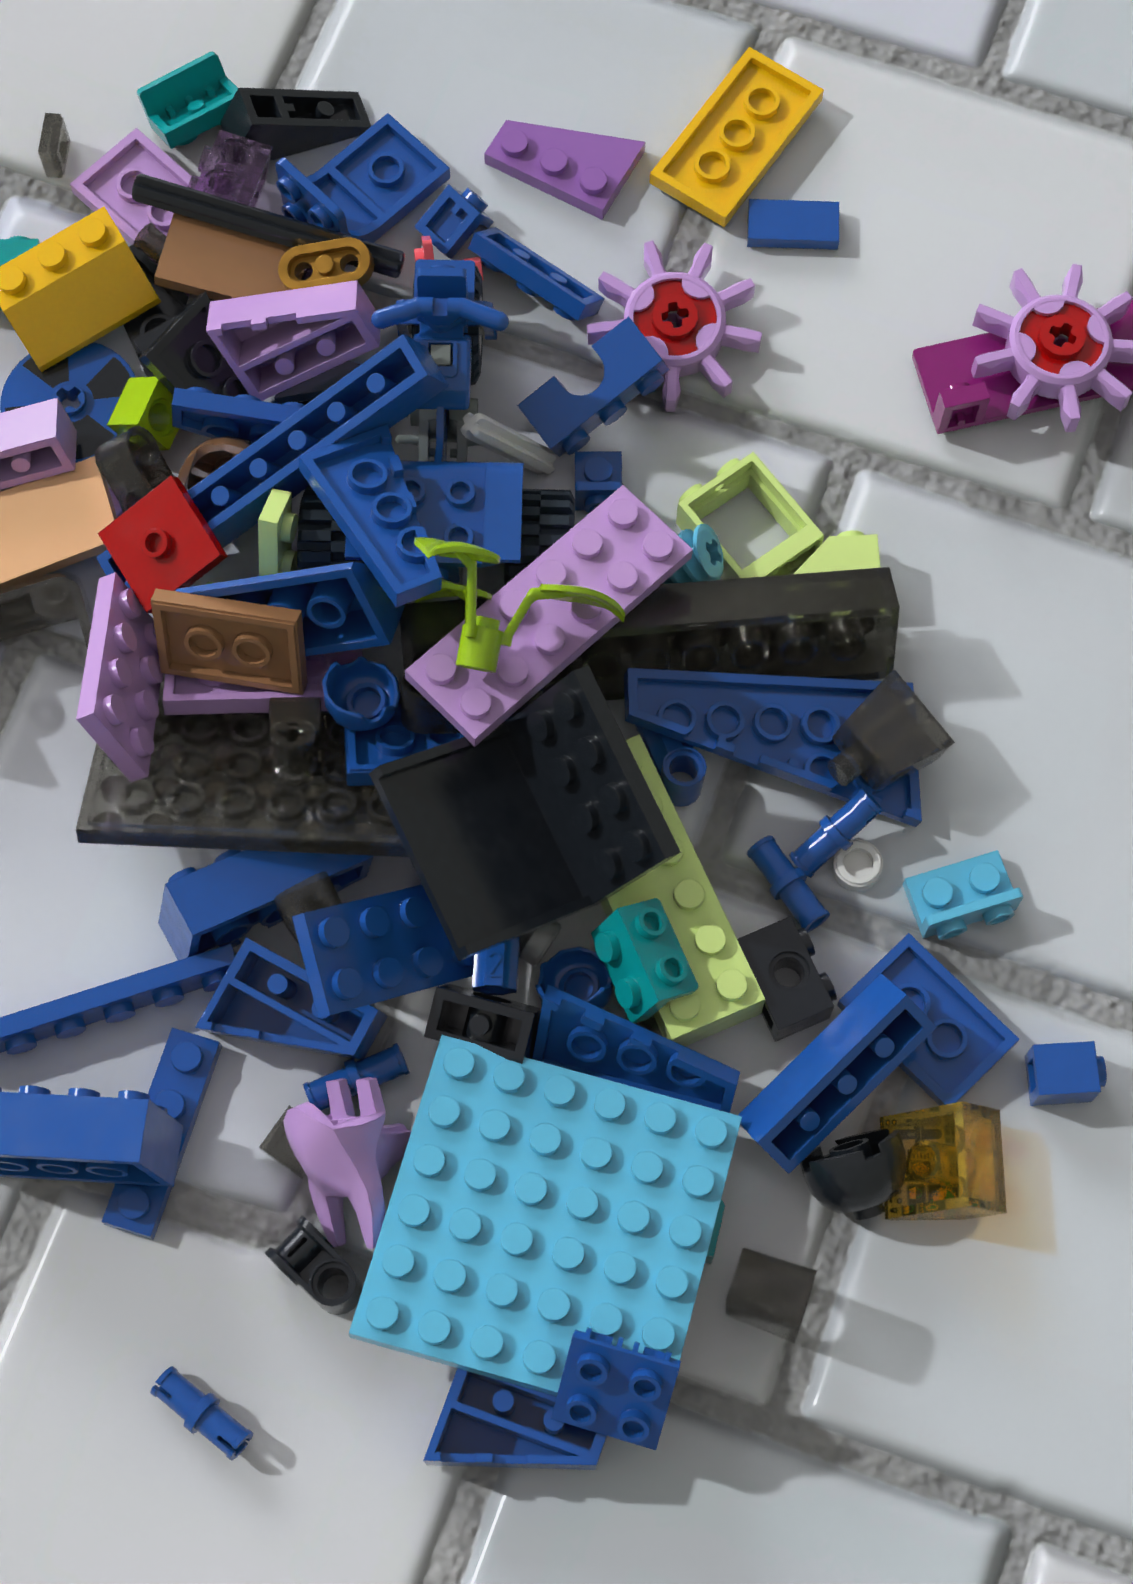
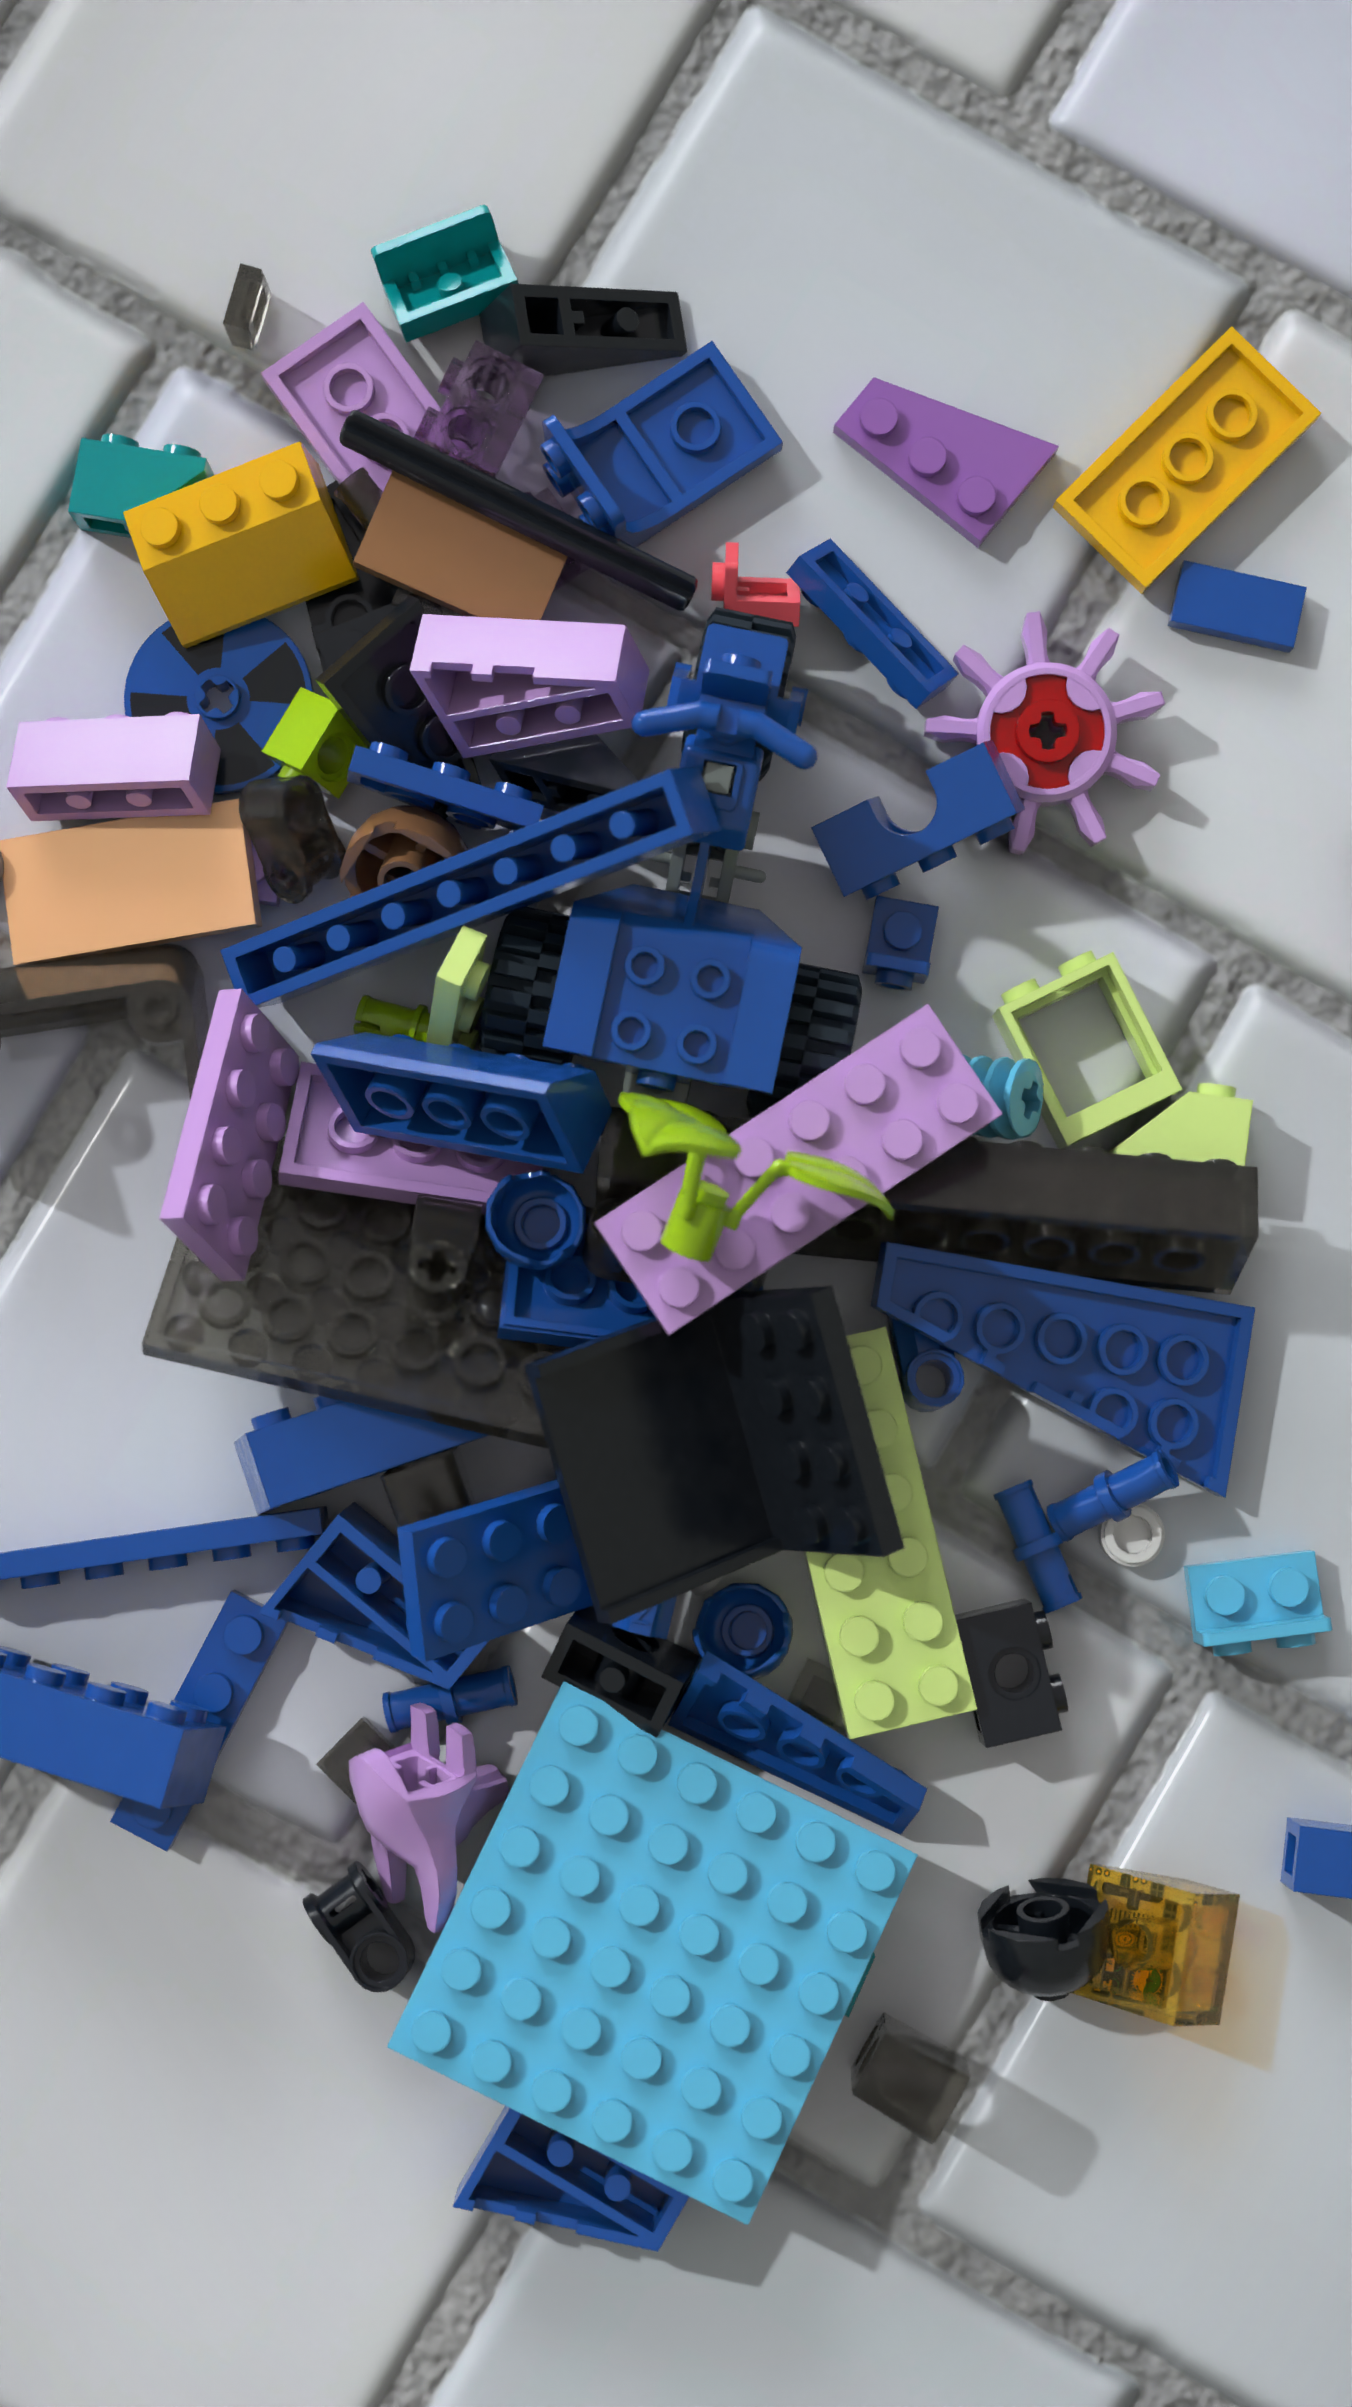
camera: 10 degrees right, 15 degrees up
(162, 542) = (308, 963): red plate -> none
(201, 1413) = (198, 2078): blue pin -> none
(230, 641) = (376, 1118): medium nougat tile -> none
(328, 263) = (589, 592): pearl gold plate -> none
(371, 504) = (588, 986): blue wing -> none
(453, 219) = (775, 520): blue bracket -> none
(508, 443) = (787, 886): white axle -> none
(616, 1388) = (695, 2184): blue hinge -> none
(643, 959) = (834, 1635): teal bracket -> none
(835, 1072) = (1045, 1820): blue brick -> none
(887, 737) = (1204, 1388): clear smoke torso -> none
(967, 1032) = (1175, 1759): blue plate -> none

